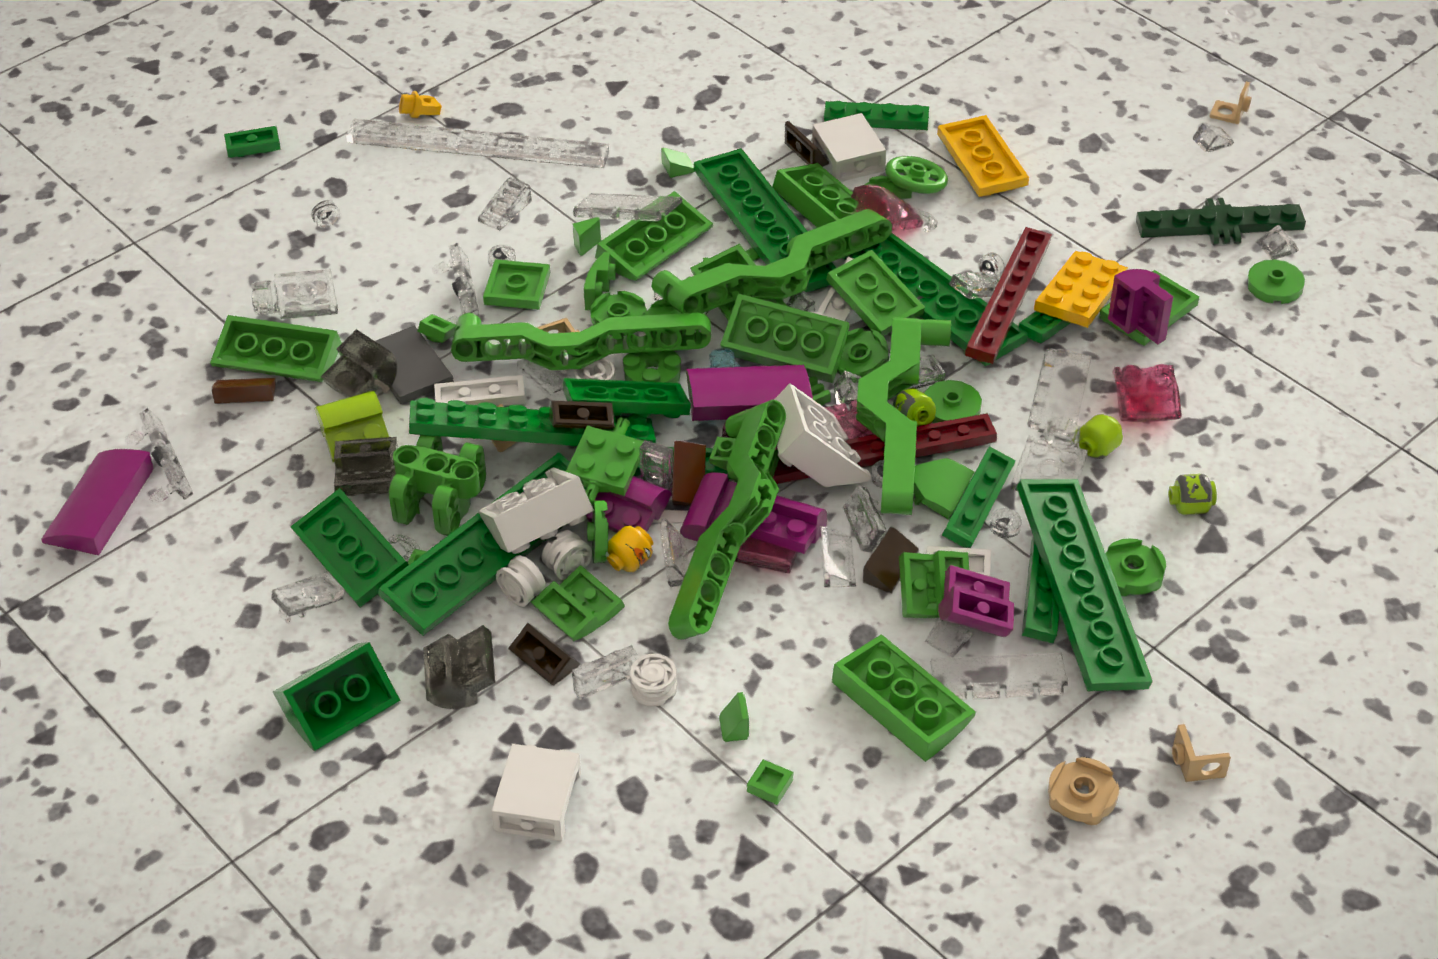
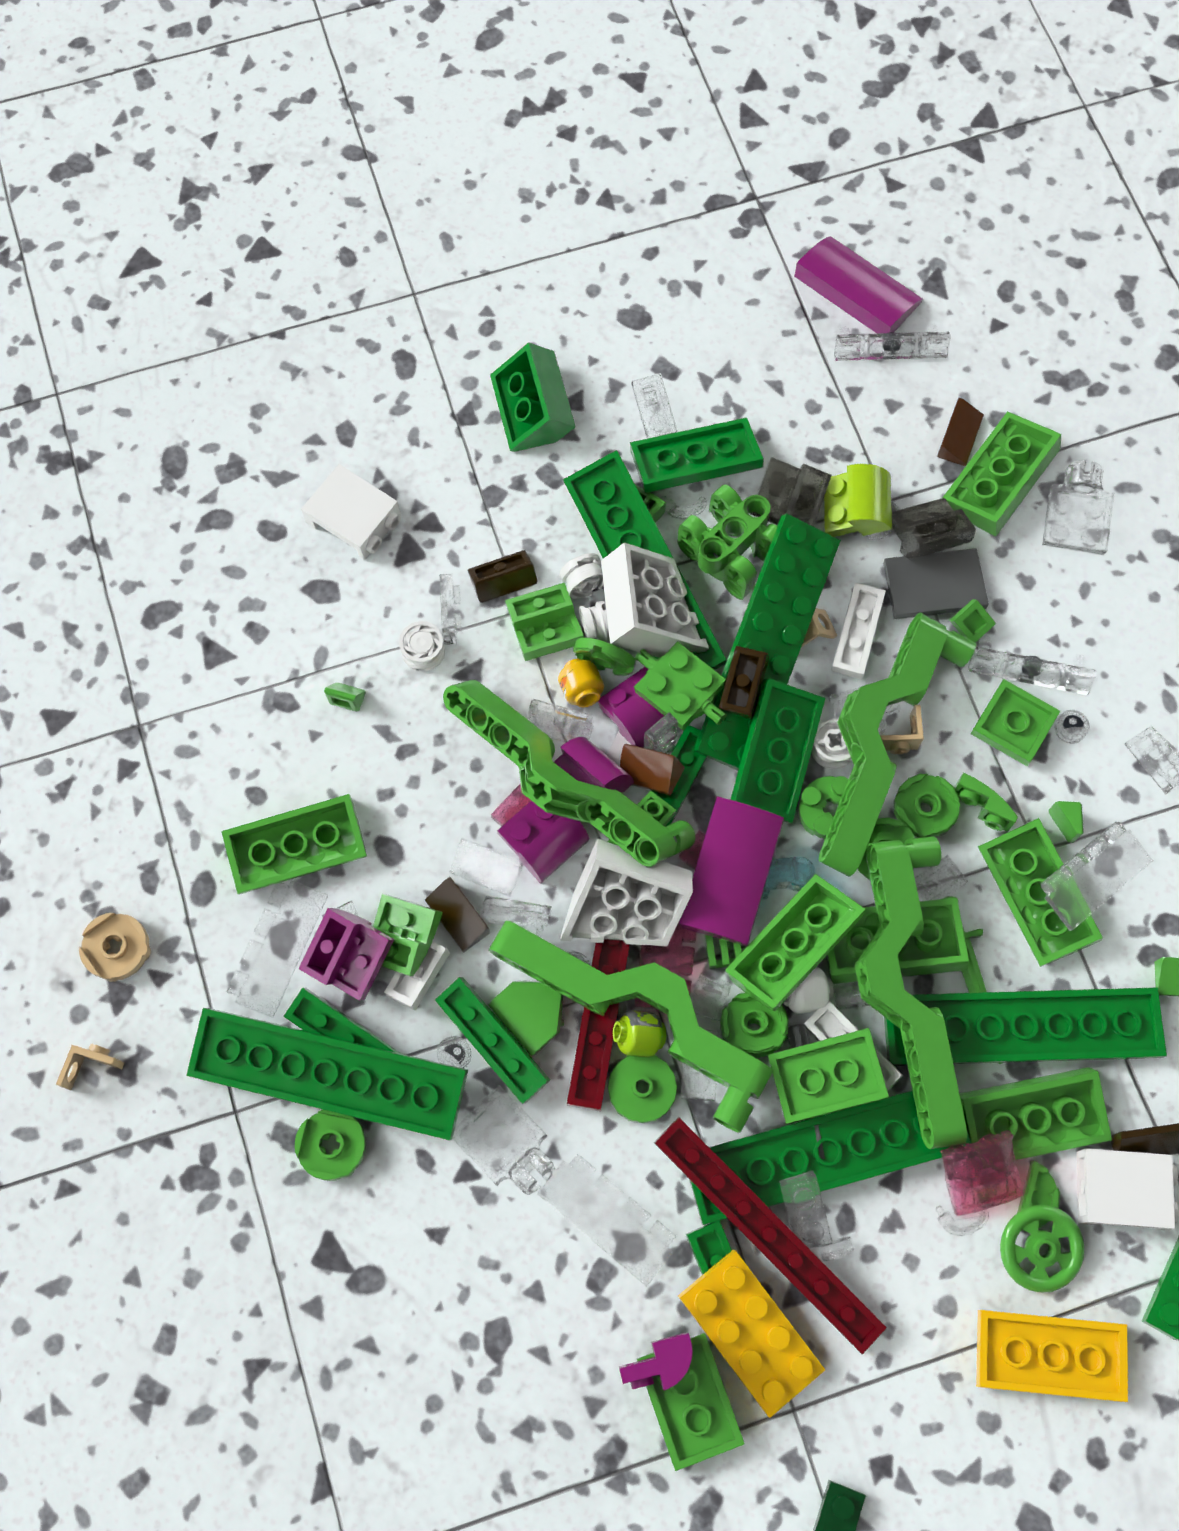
camera: 115 degrees right, 25 degrees up
(459, 668) = (508, 494): clear smoke brick -> none
(770, 782) = (265, 693): bright green plate -> none
(1100, 436) = (510, 1211): lime head -> none
(1147, 393) = (555, 1308): clear pink slope -> none
(1193, 494) = (389, 1266): lime head -> none

